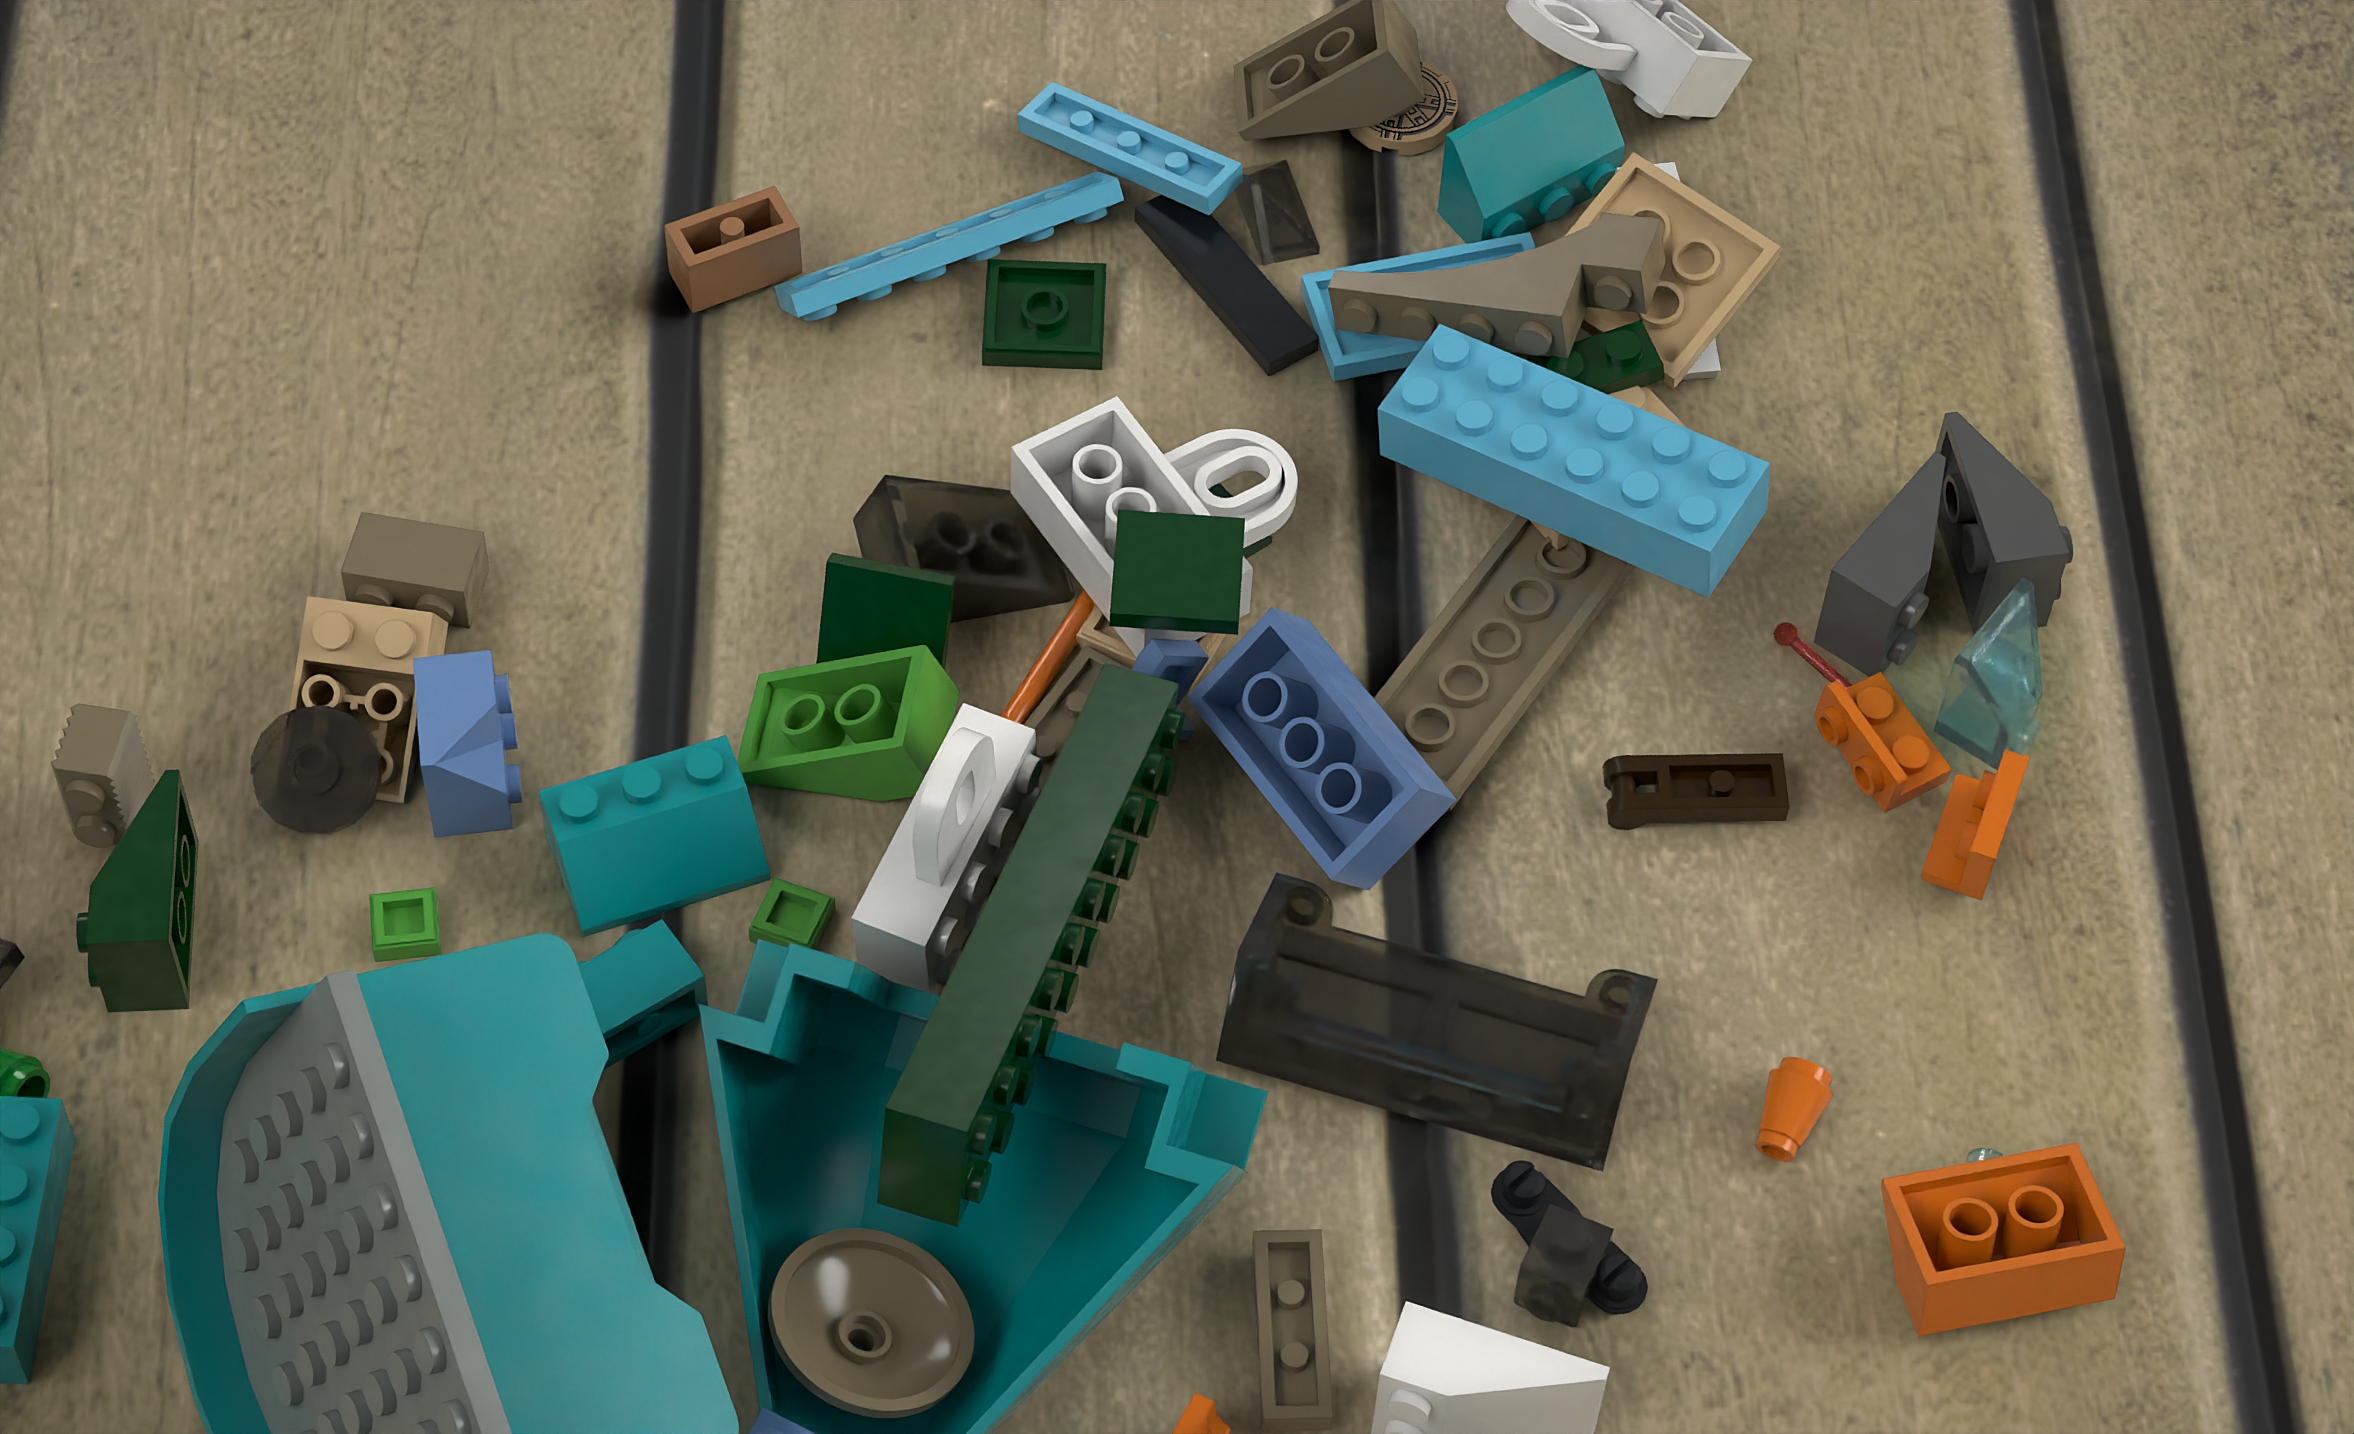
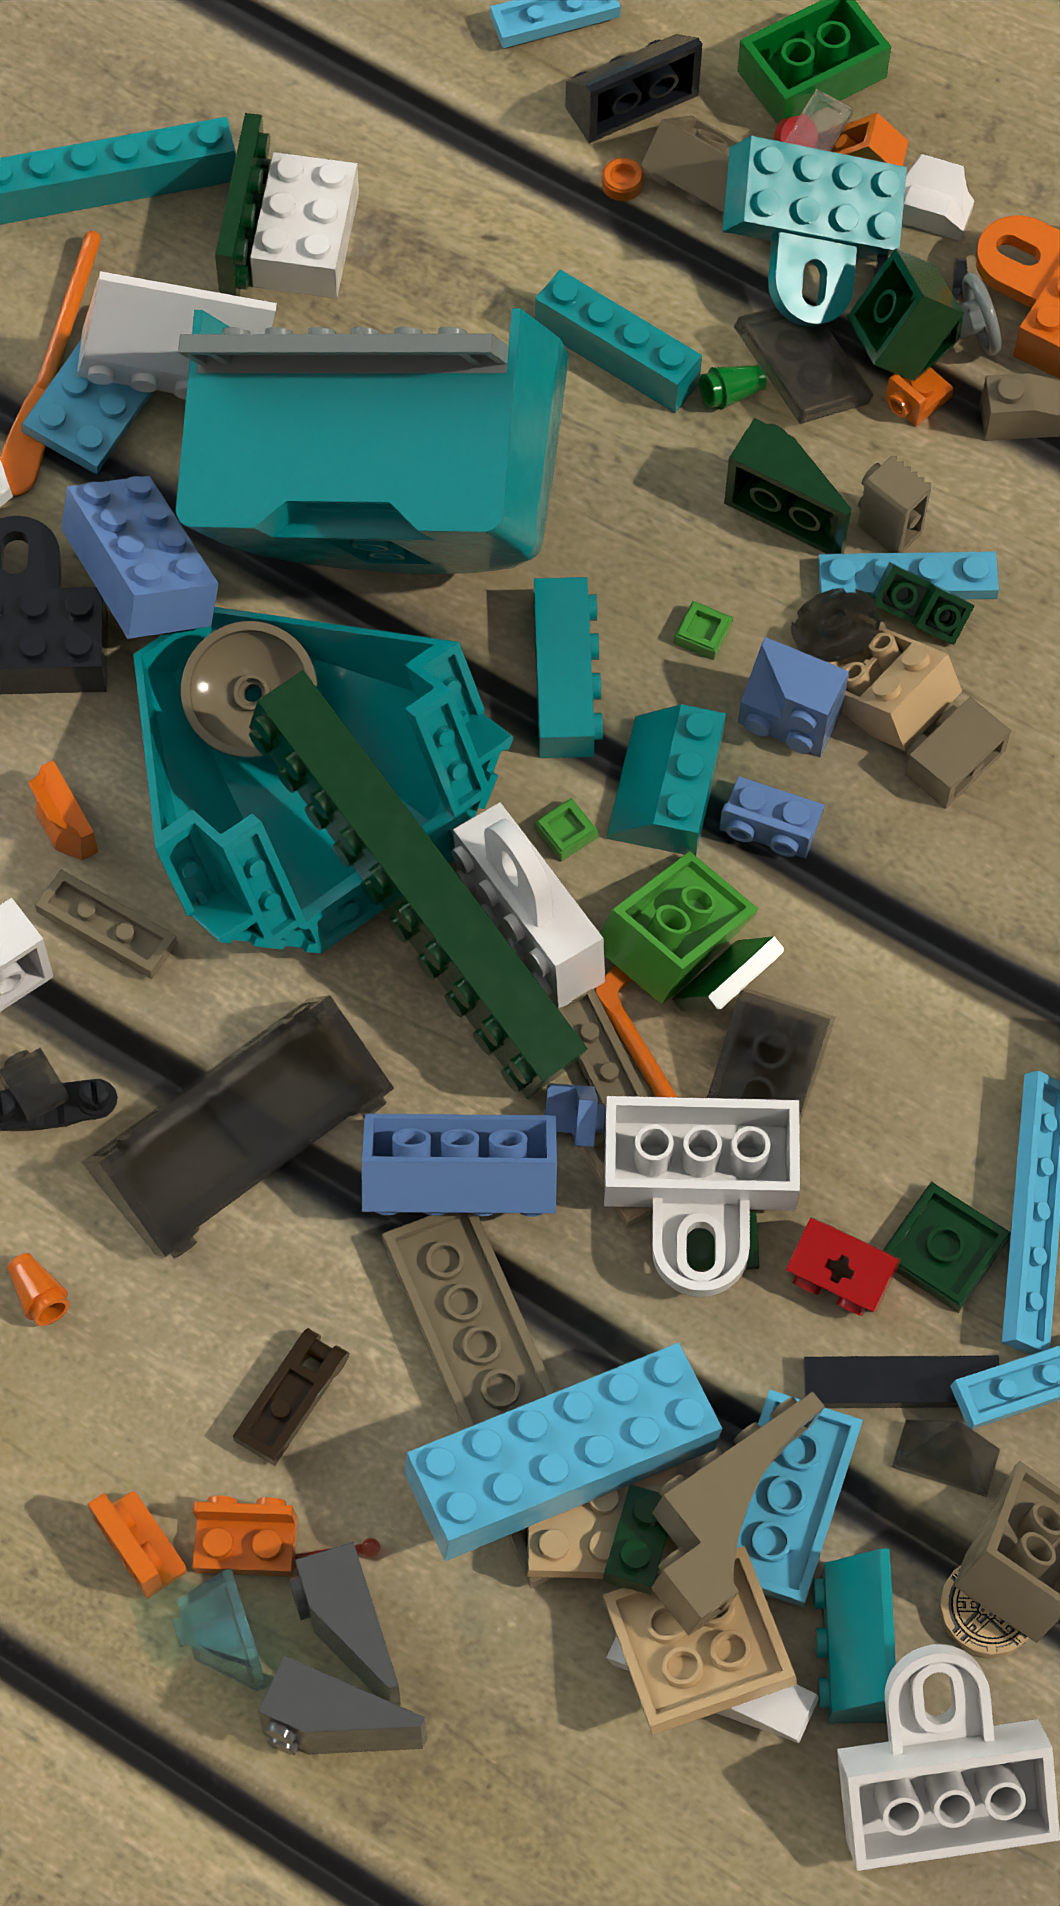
camera: 125 degrees right, 10 degrees up
(179, 739) = (961, 573): none -> medium azure plate
(221, 701) = (922, 603): none -> dark green slope
(628, 709) = (771, 818): none -> medium blue bracket
(1149, 363) = (825, 1243): none -> red brick
(1177, 572) = (626, 1131): dark green tile -> none

